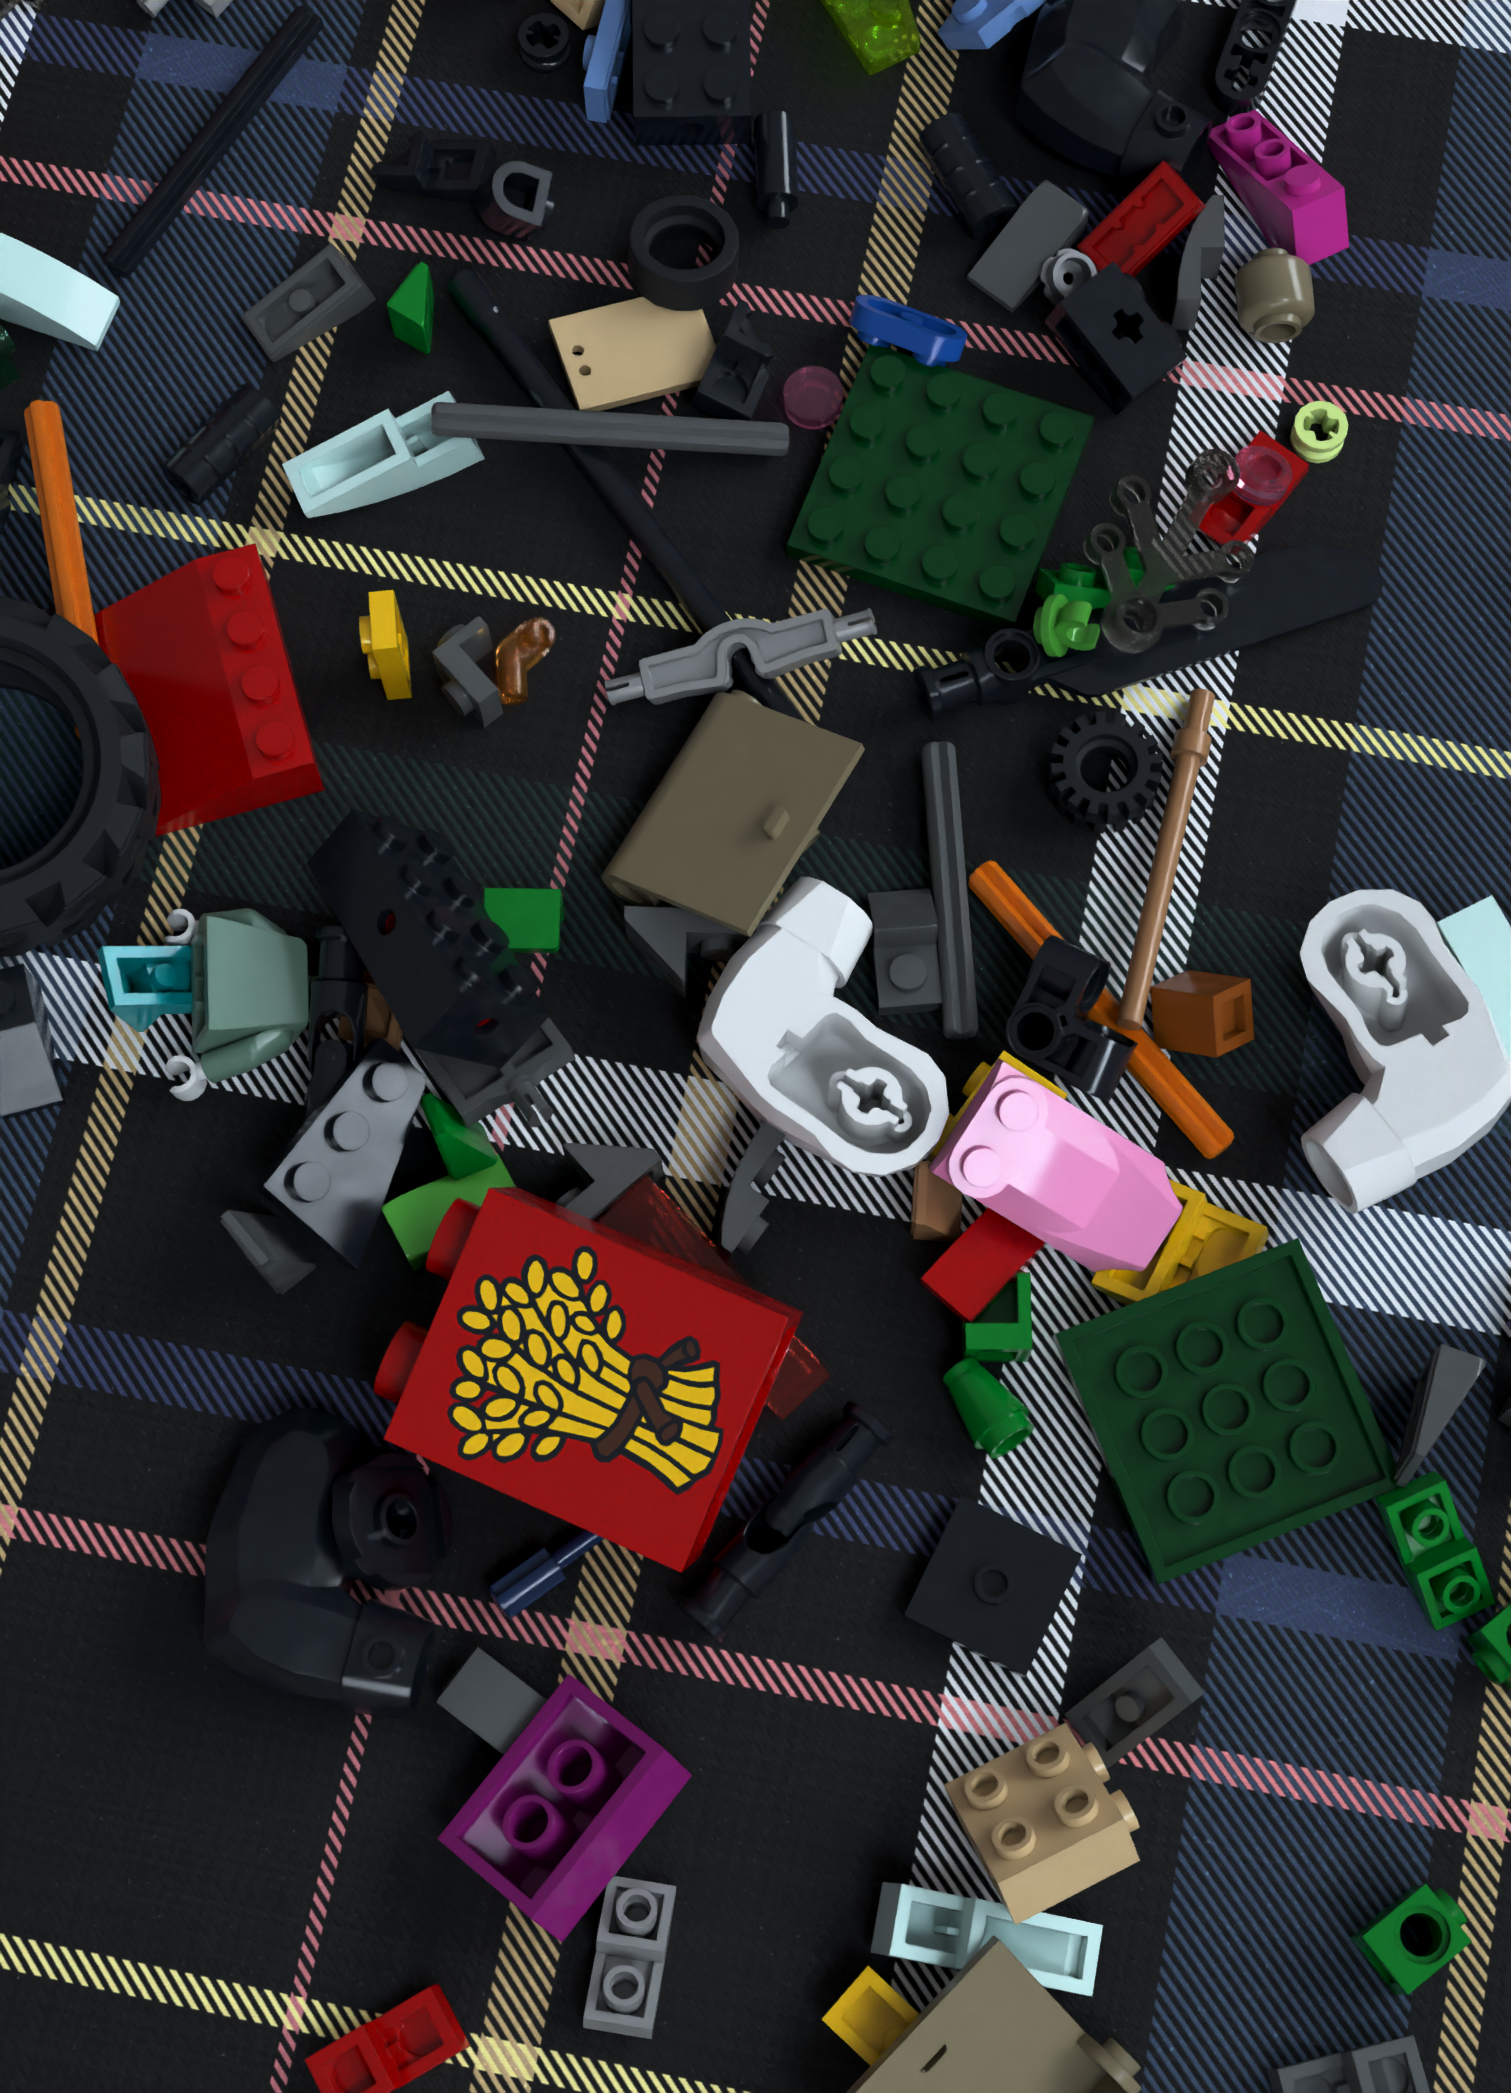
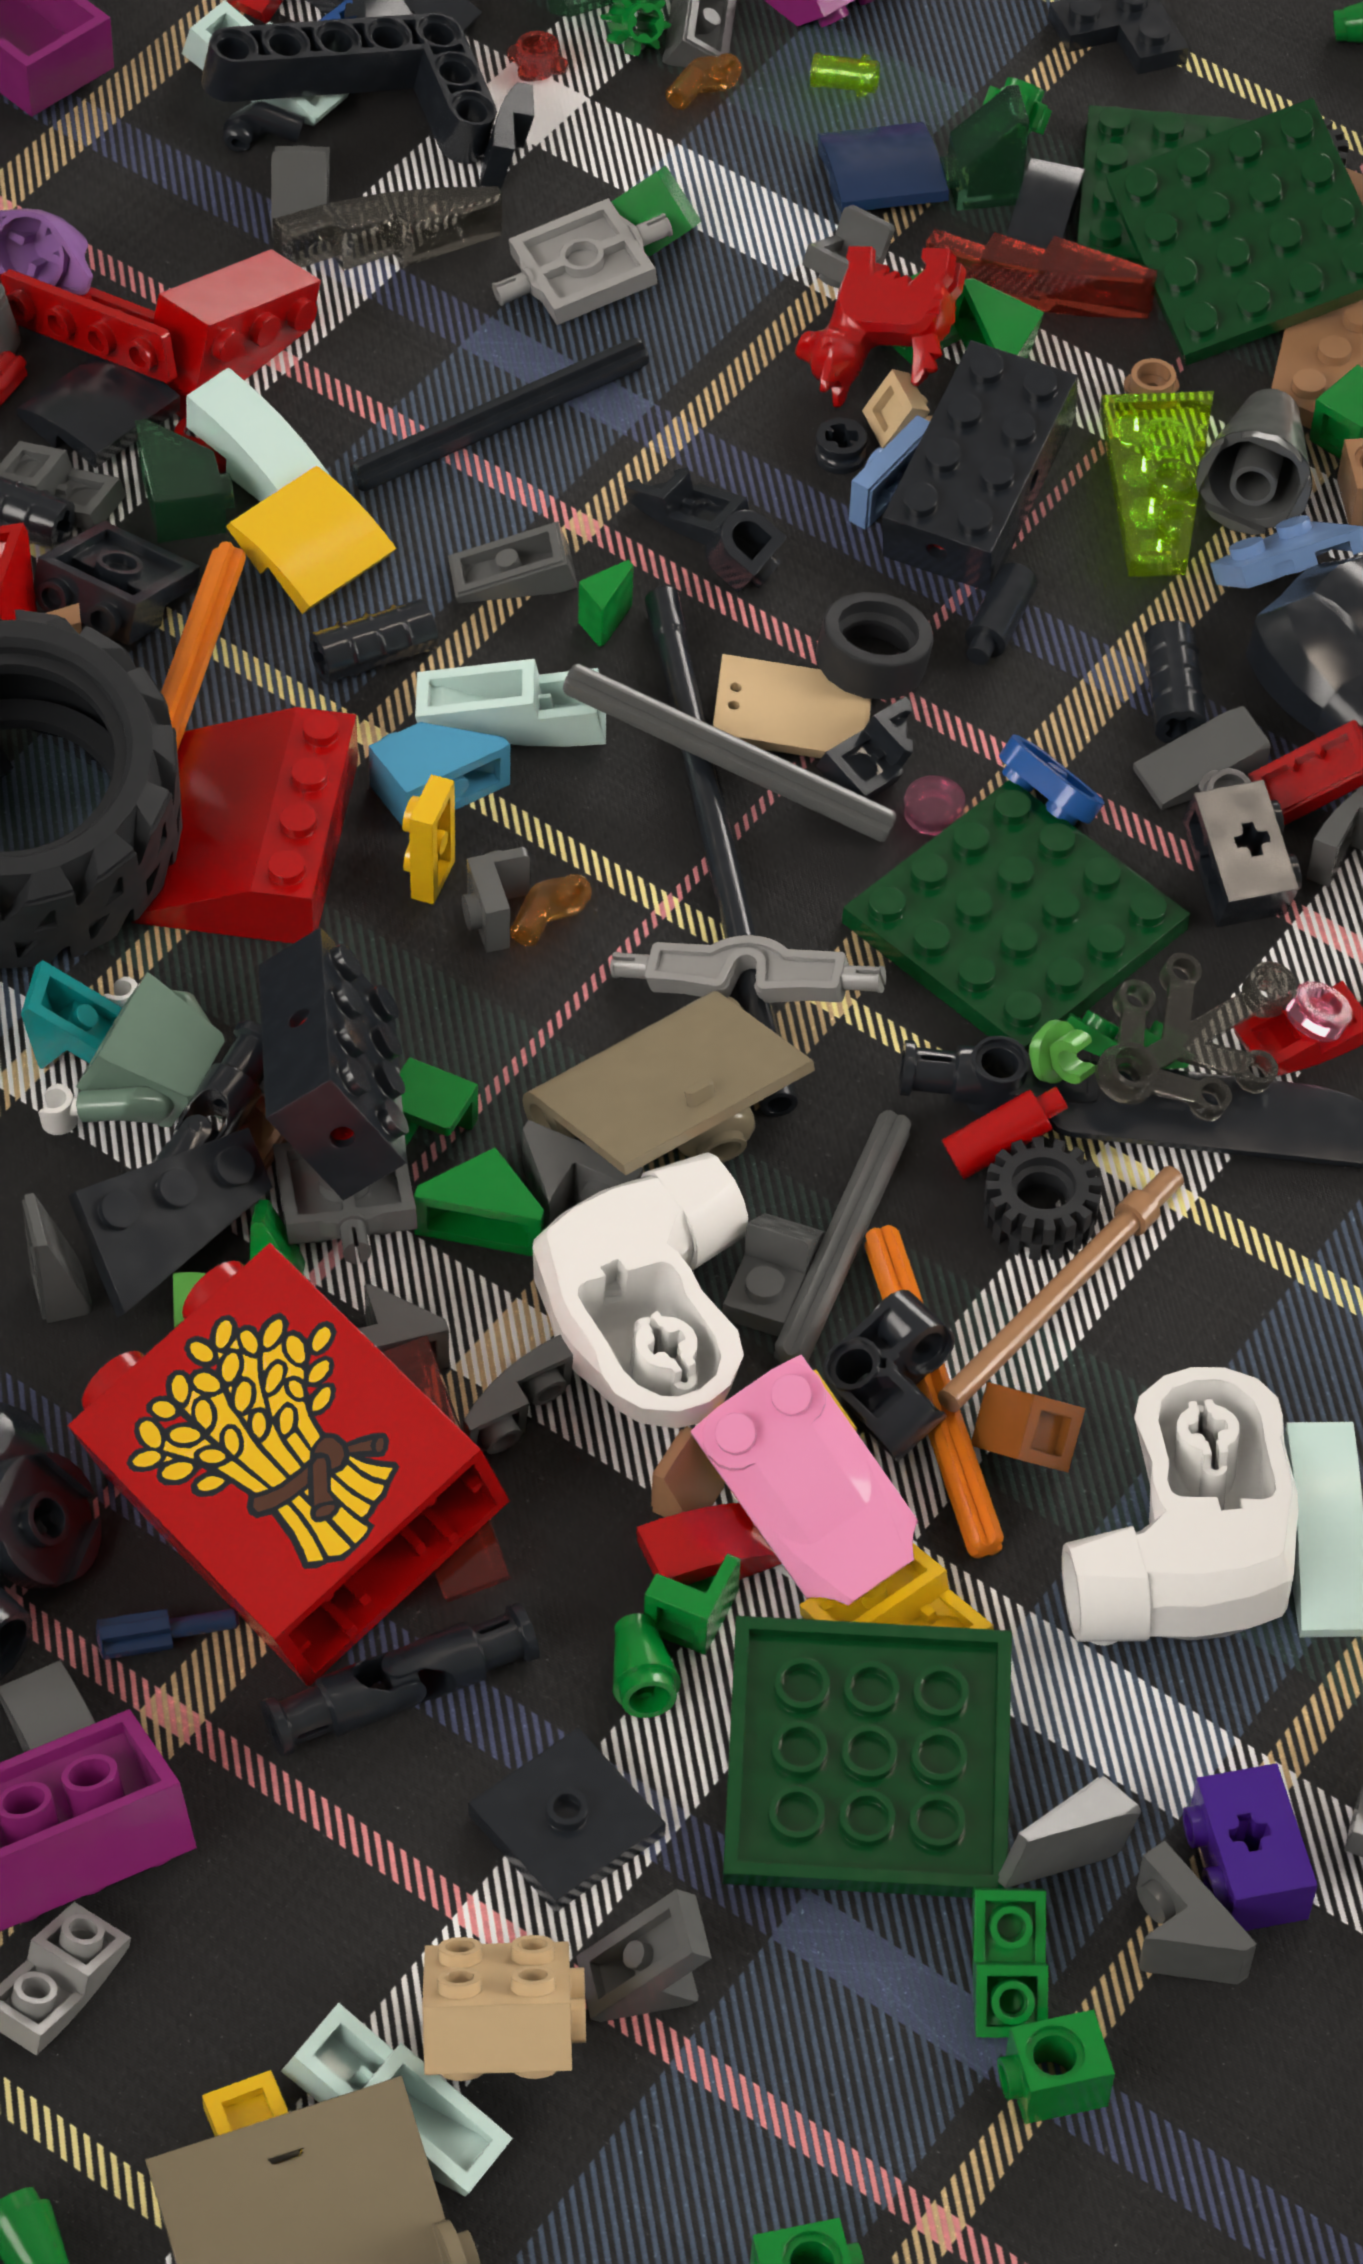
camera: 20 degrees right, 20 degrees down
(107, 355) = (311, 537): none -> yellow slope
(346, 560) = (406, 759): none -> dark azure slope
(621, 1004) = (480, 1206): none -> green slope
(1042, 721) = (1020, 1118): none -> red cylinder

